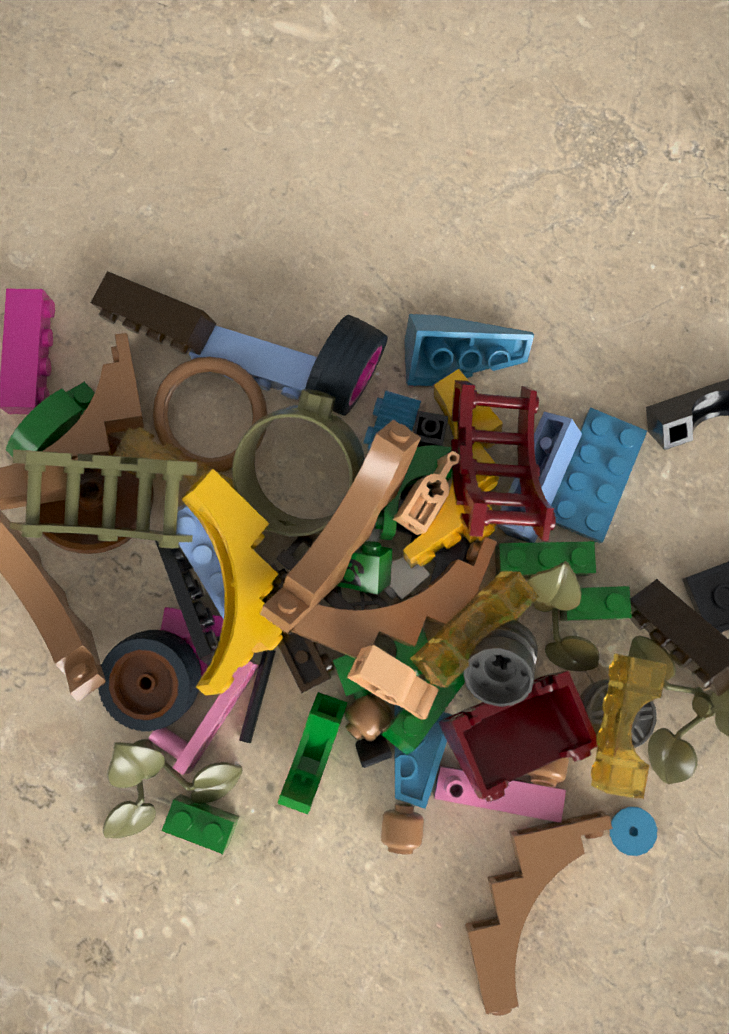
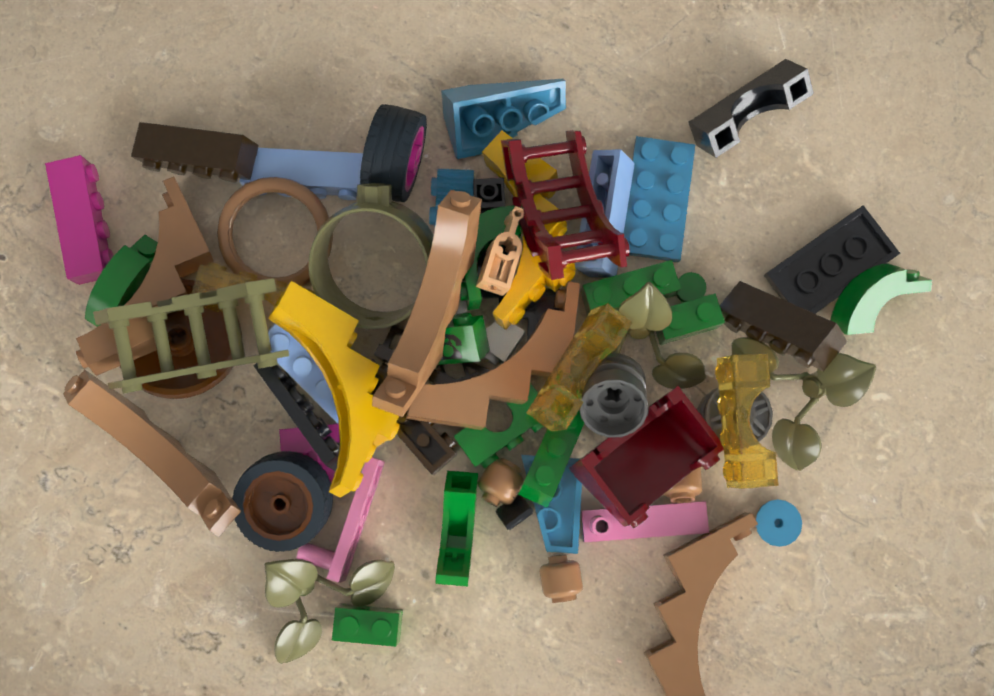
camera: 15 degrees left, 0 degrees up
(257, 696) = (390, 489): black bar -> none
(392, 681) = (515, 438): light nougat piece -> none
(607, 572) = (692, 287): none -> green tile

